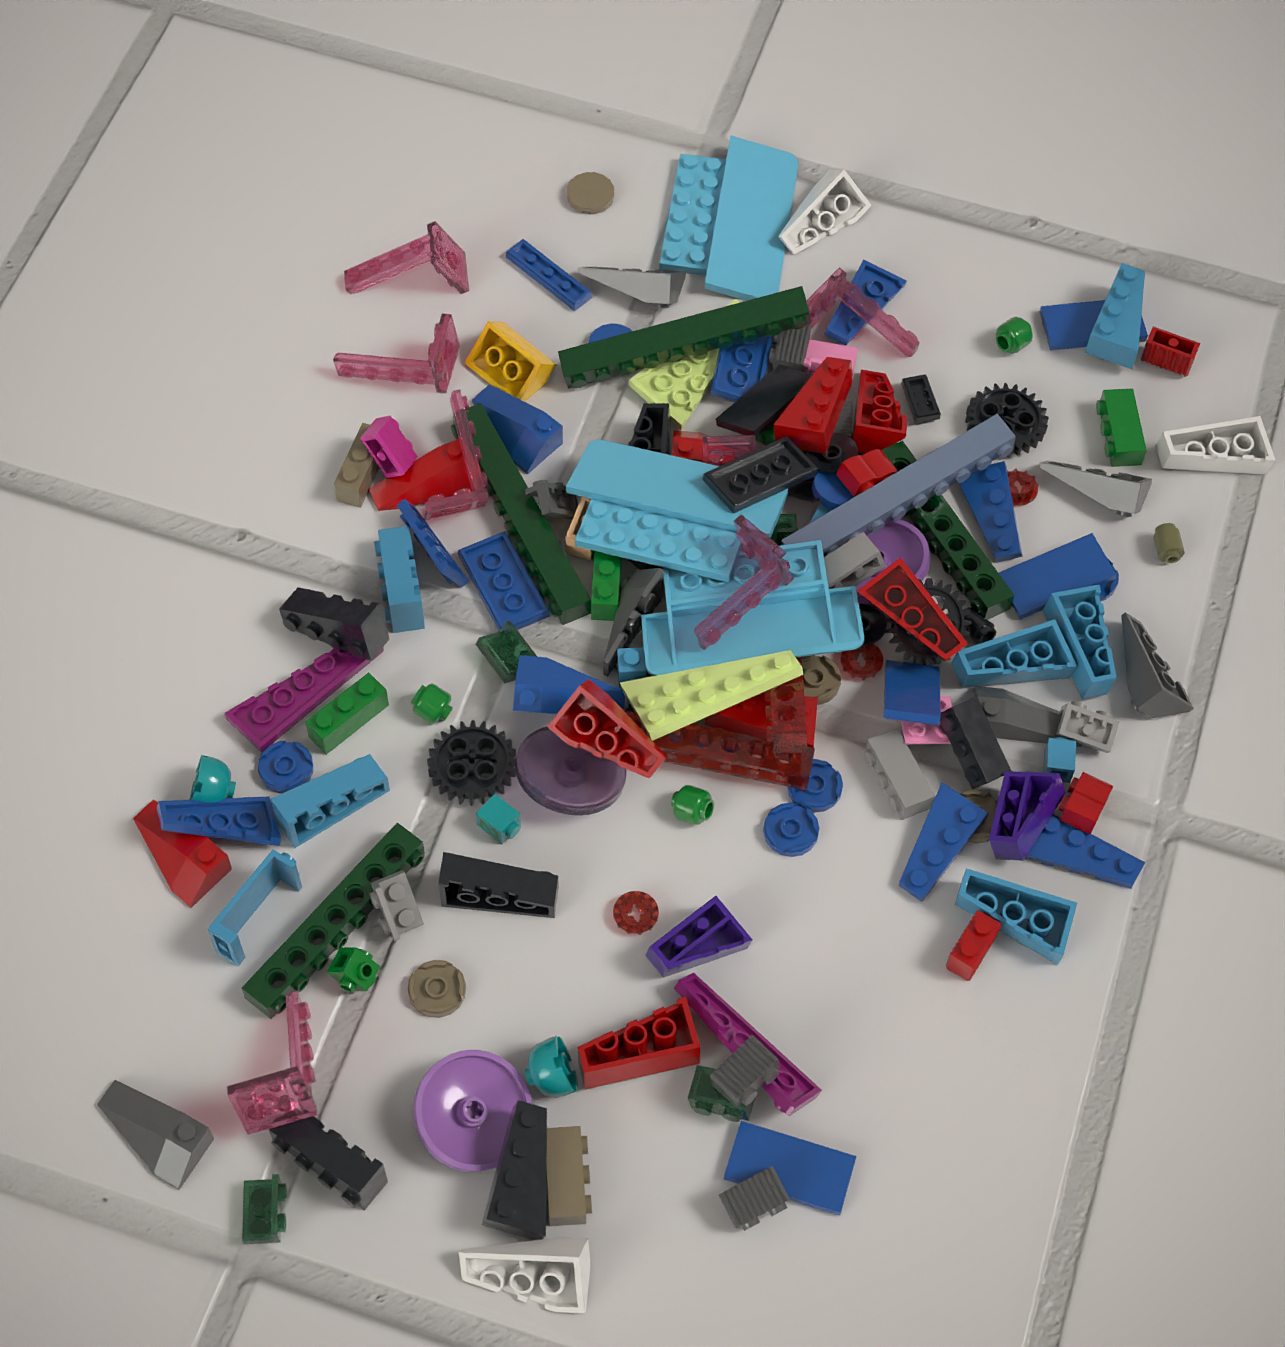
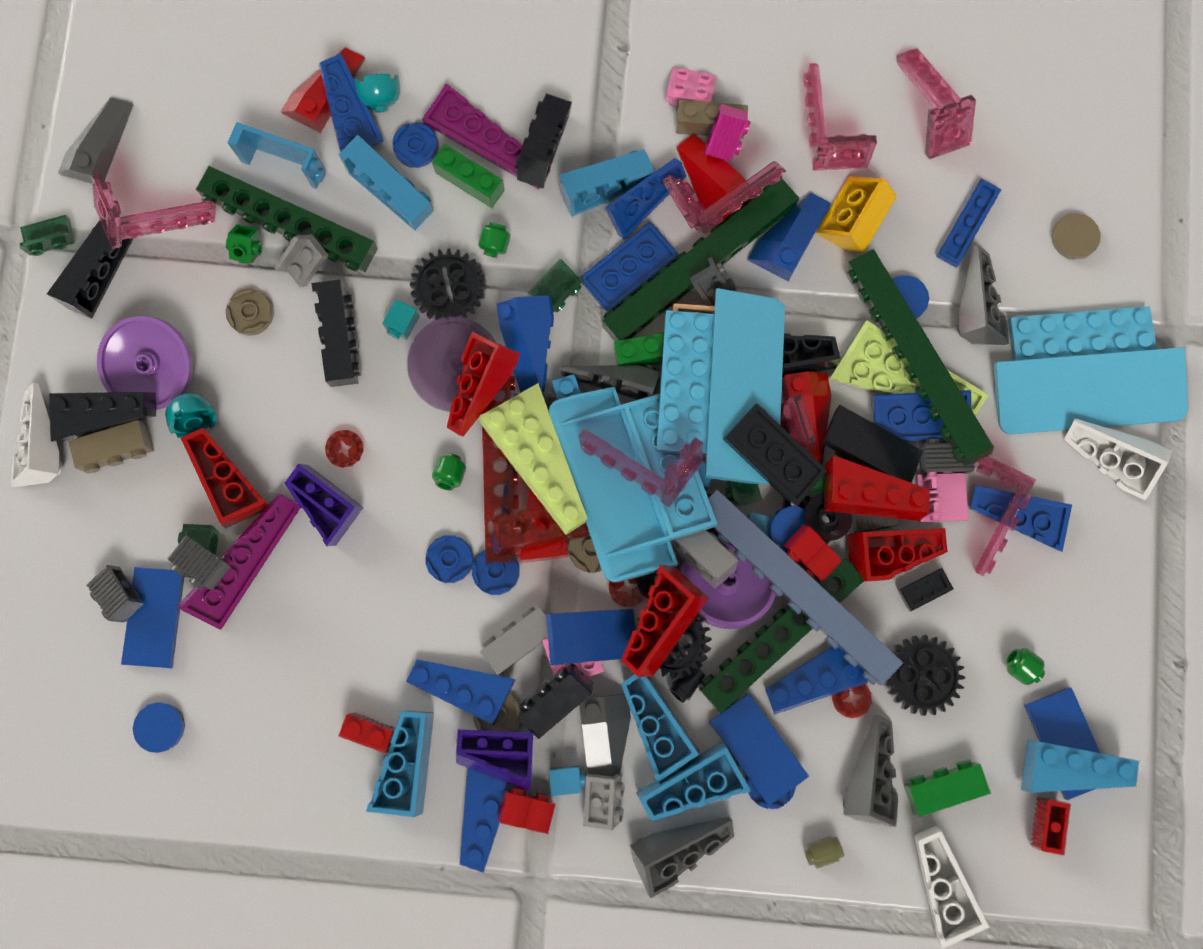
camera: 80 degrees right, 20 degrees up
(315, 478) = (690, 86): none -> bright pink hinge
(924, 1184) = (158, 727): none -> blue tile

